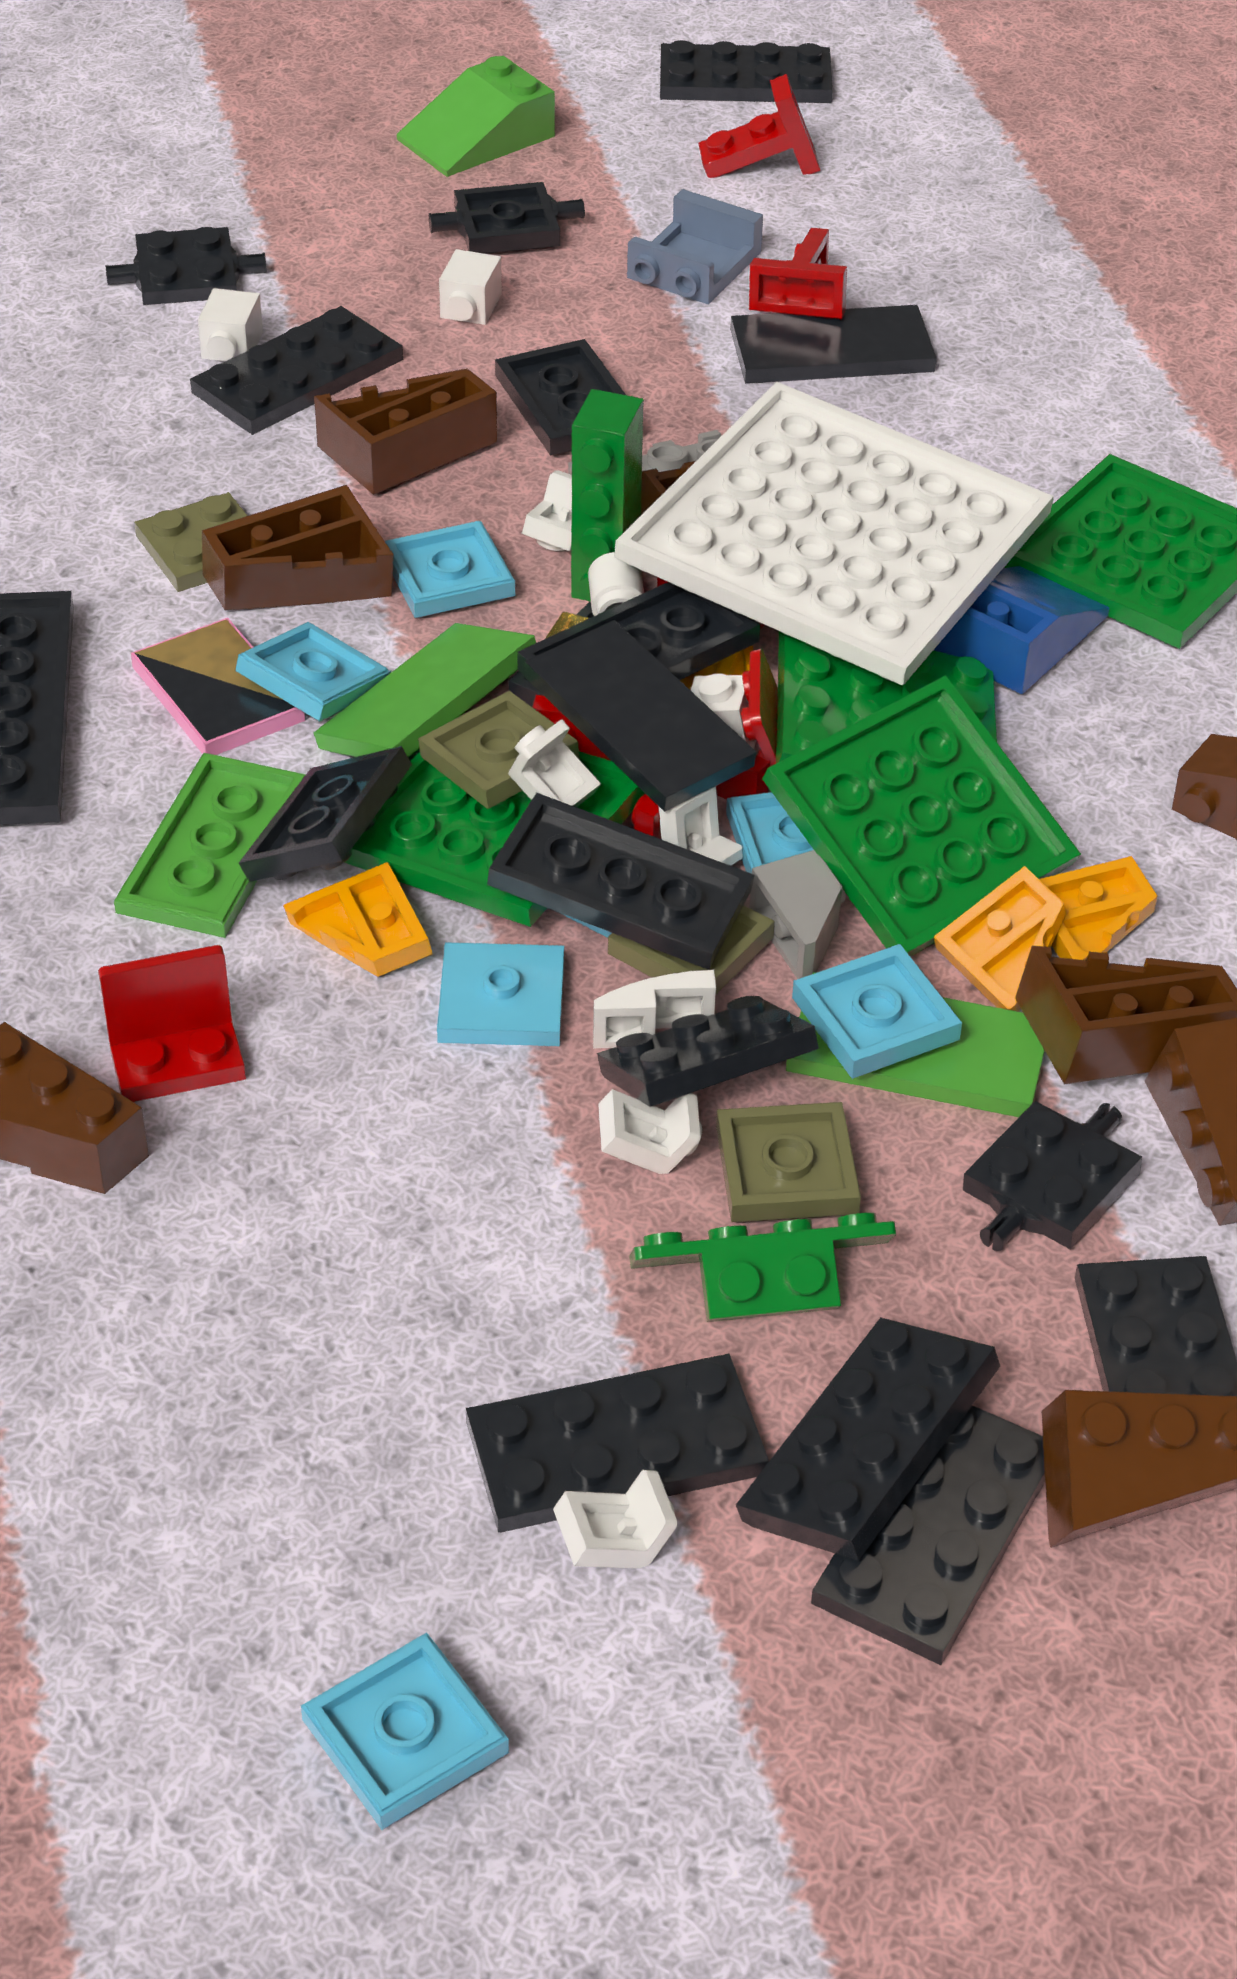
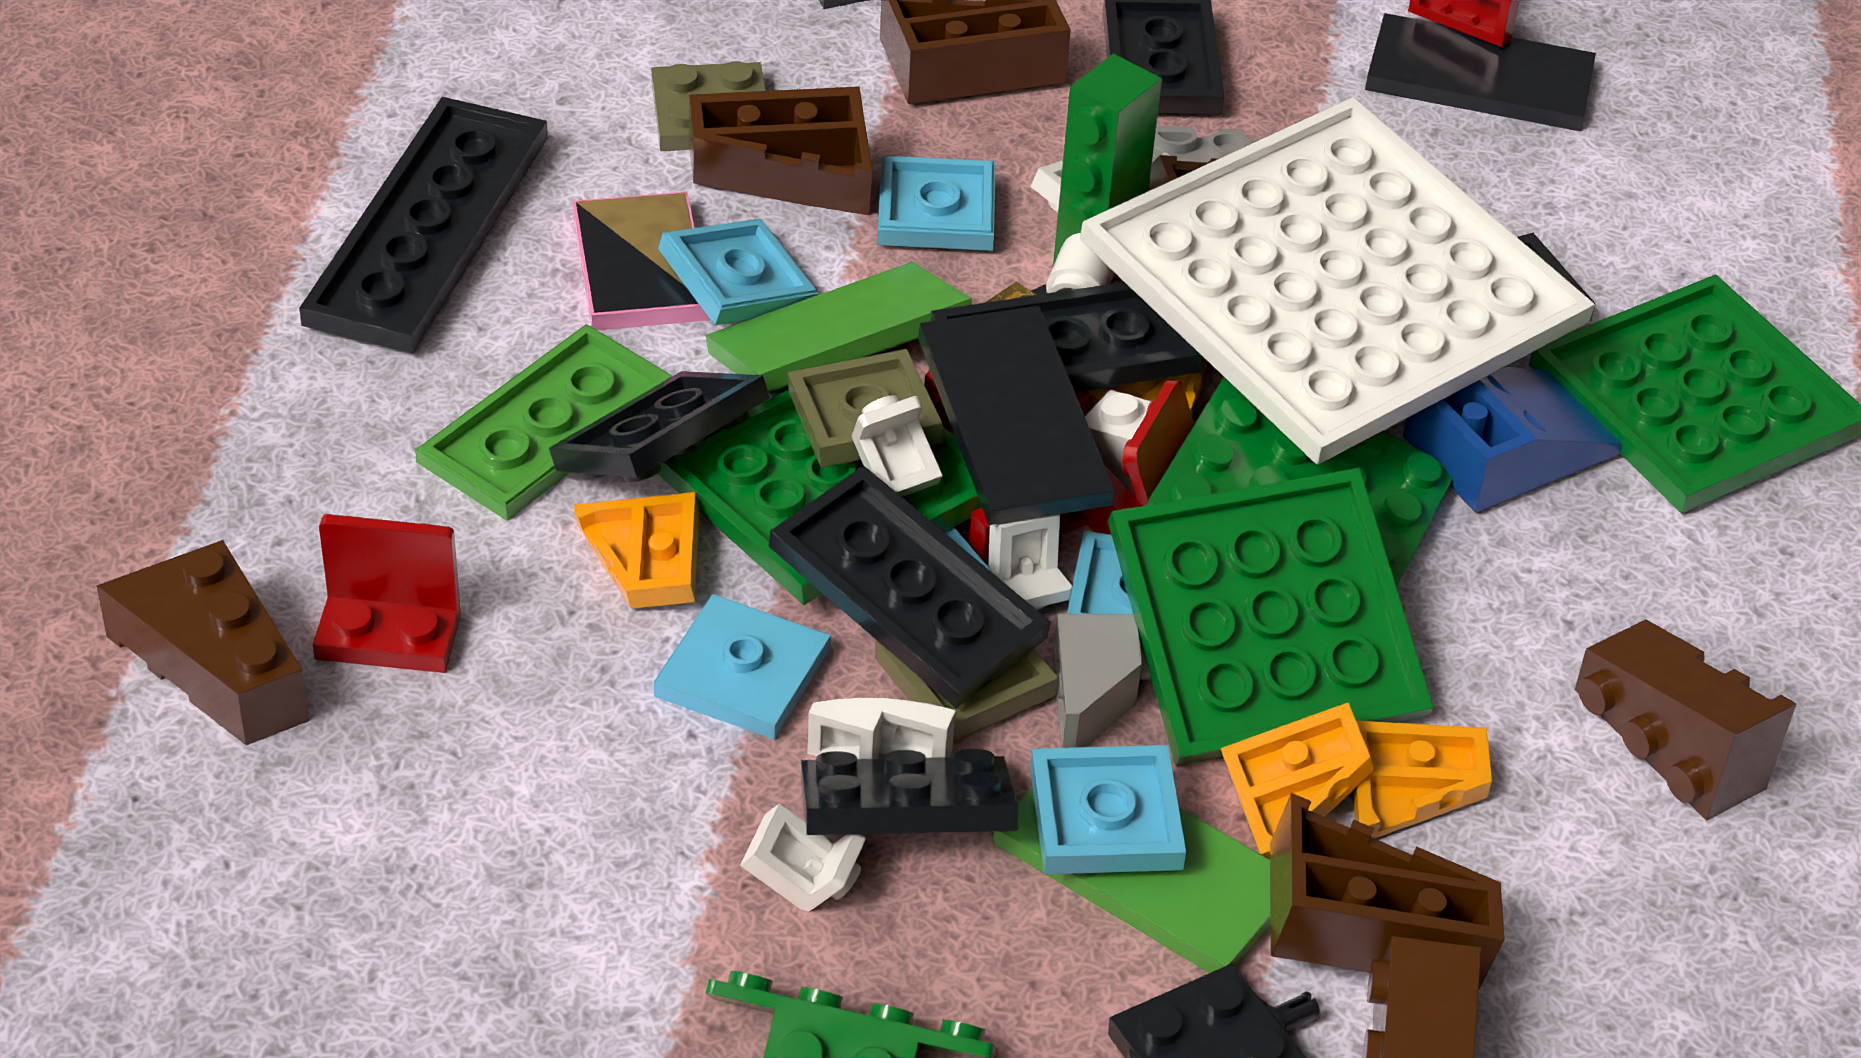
camera: 20 degrees right, 0 degrees up
(787, 1162) = (930, 941): olive plate -> none

